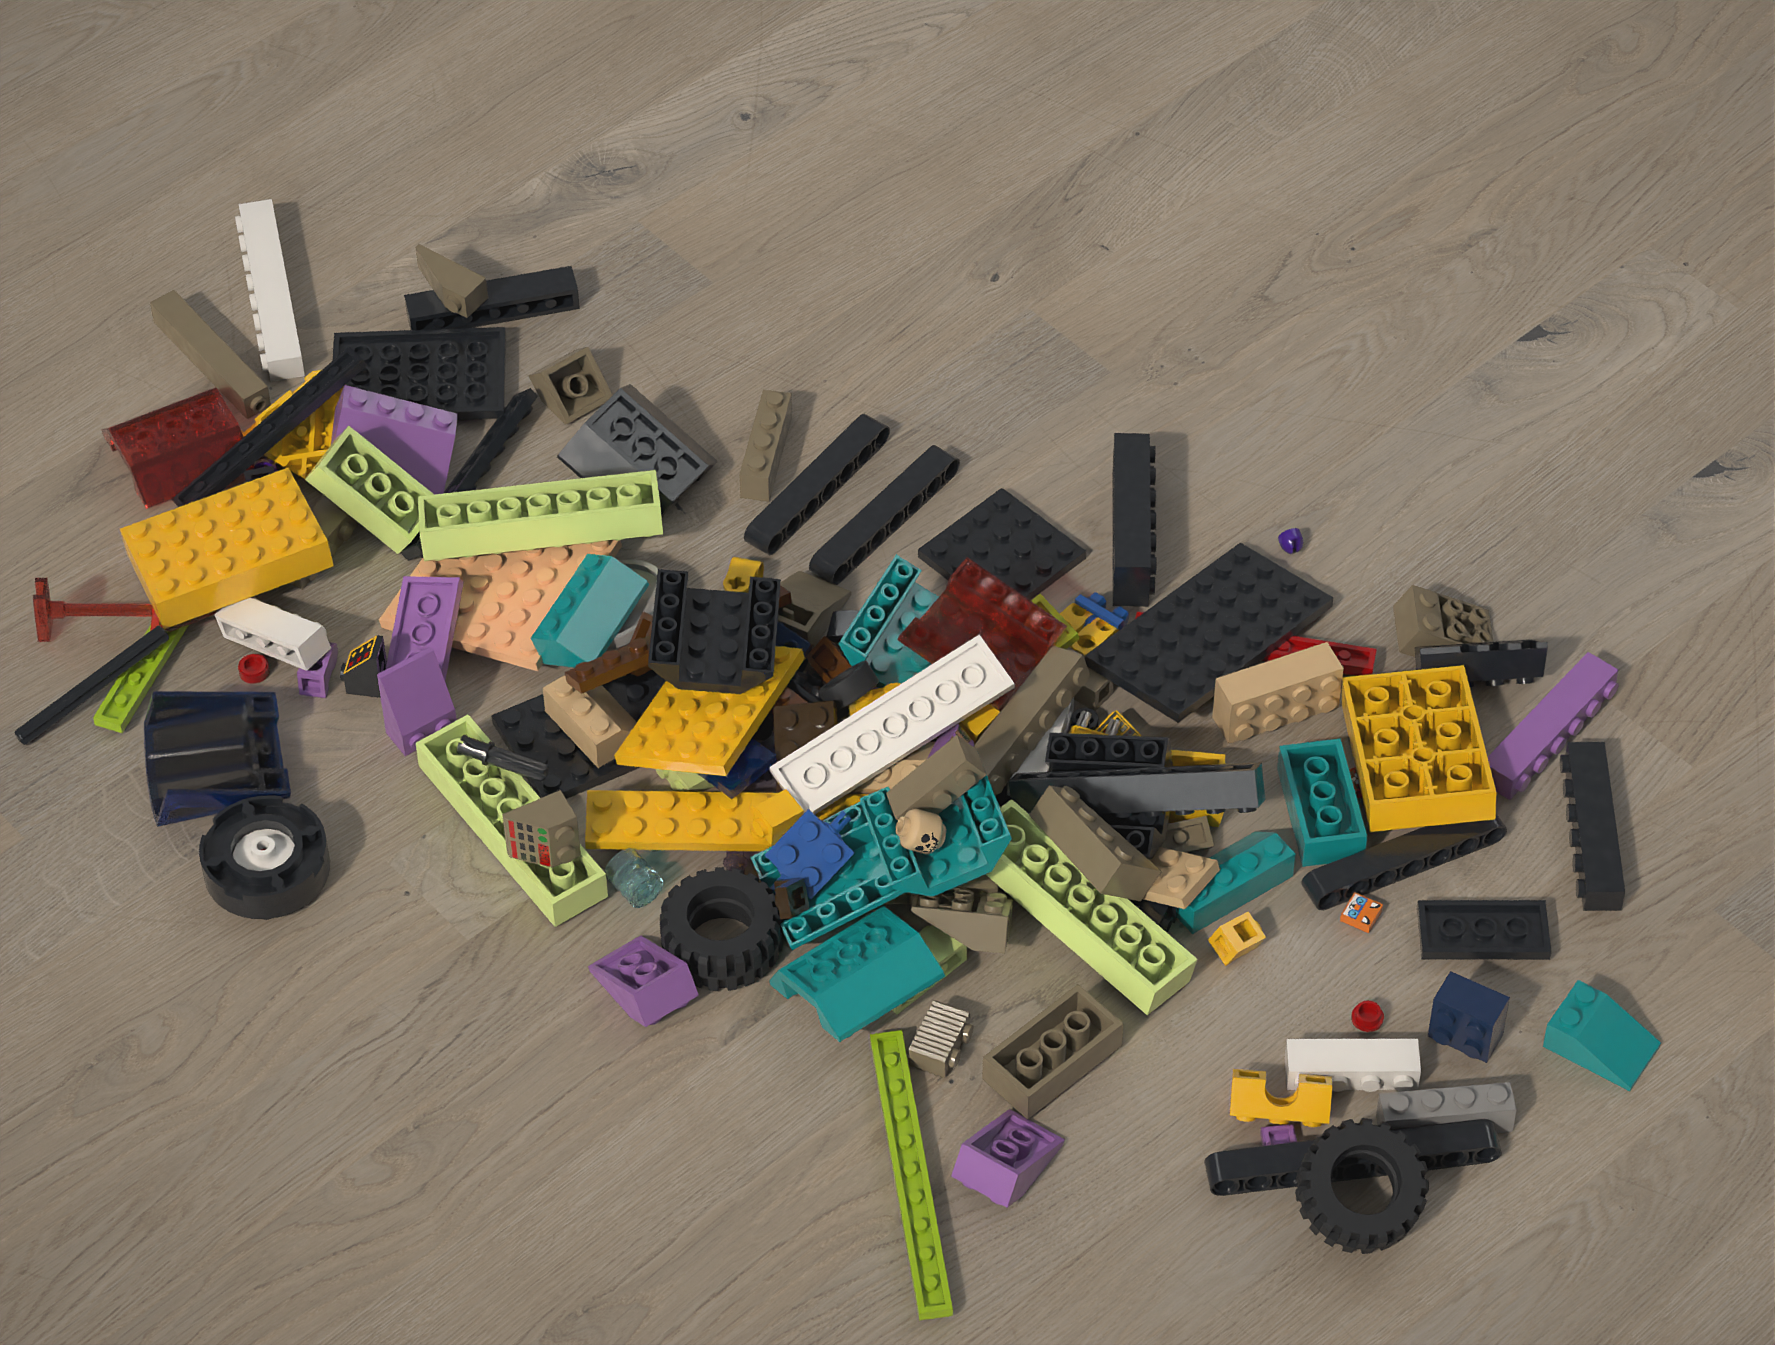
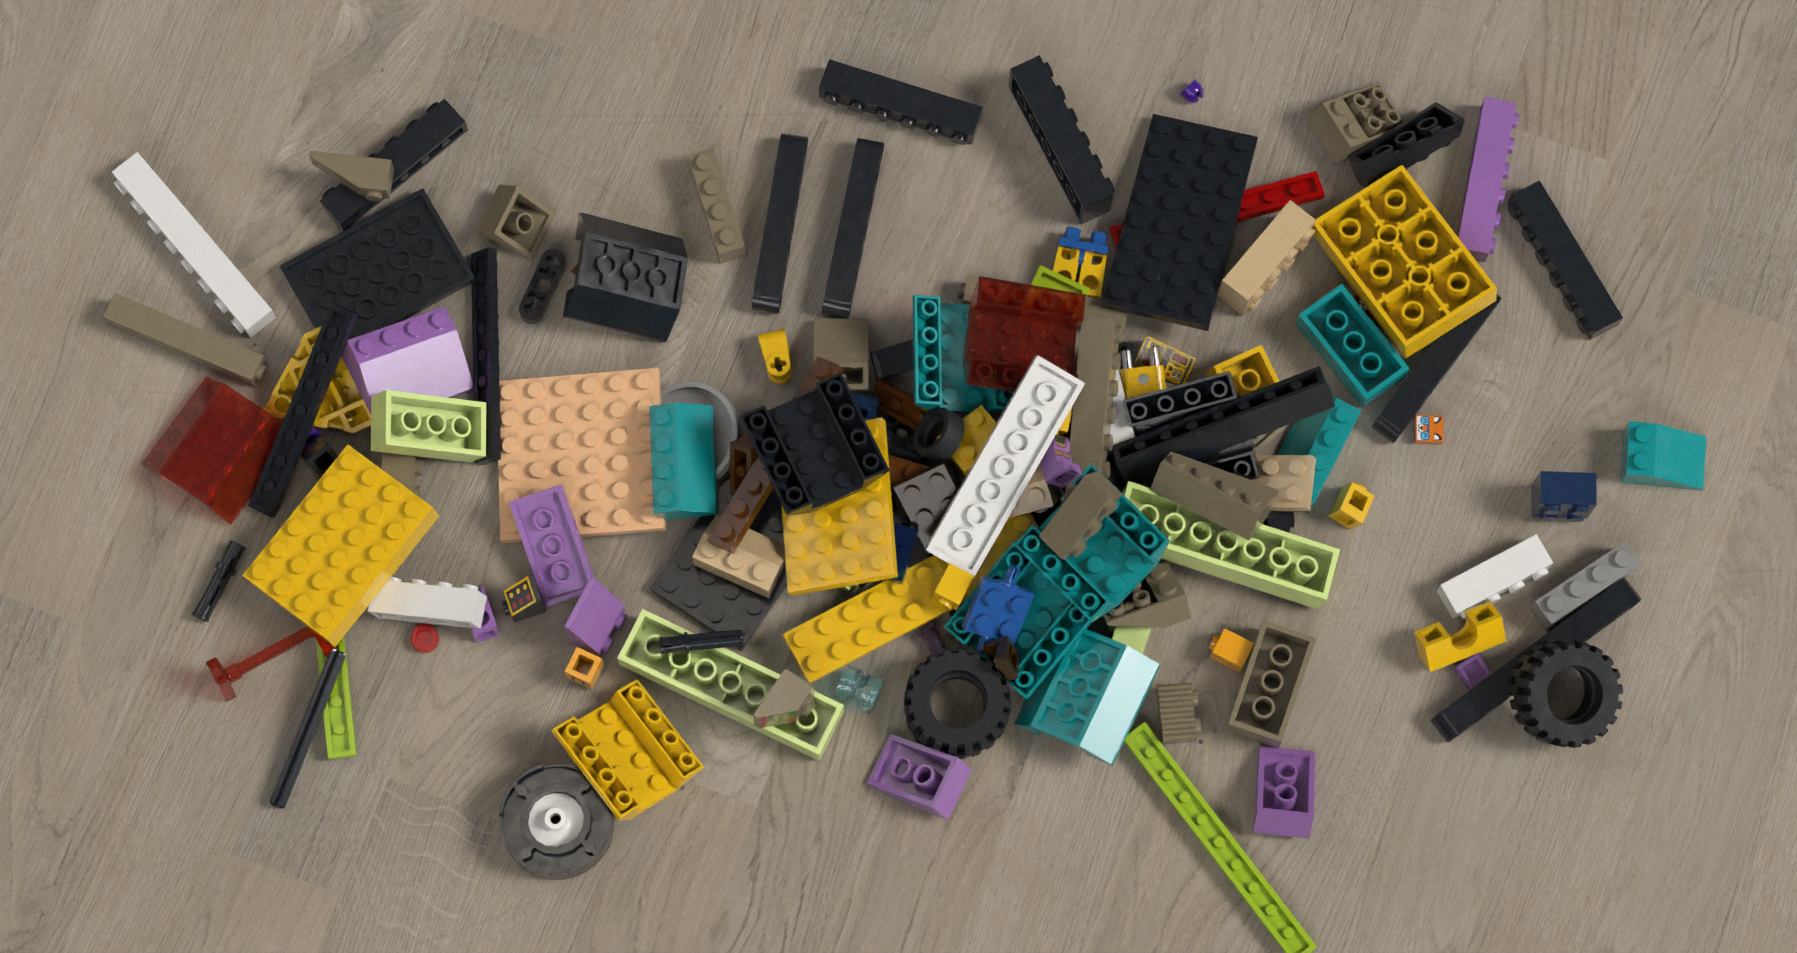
camera: 30 degrees left, 25 degrees up
(71, 560) = (219, 580): none -> black pin
(211, 752) = (455, 749): clear smoke windscreen -> none
(372, 833) = (629, 752): none -> yellow slope
(381, 746) = (584, 668): none -> light orange brick
(539, 450) = (556, 271): none -> black beam
(539, 515) = (587, 387): yellowish green brick -> none
(921, 831) = (1089, 562): tan head -> none
(997, 437) = (900, 102): none -> black brick
(1006, 542) = (966, 217): black plate -> none
(1027, 1002) = (1230, 650): none -> light orange brick
(1367, 1016) = (1481, 525): red plate -> none
(1483, 930) = (1529, 400): black plate -> none

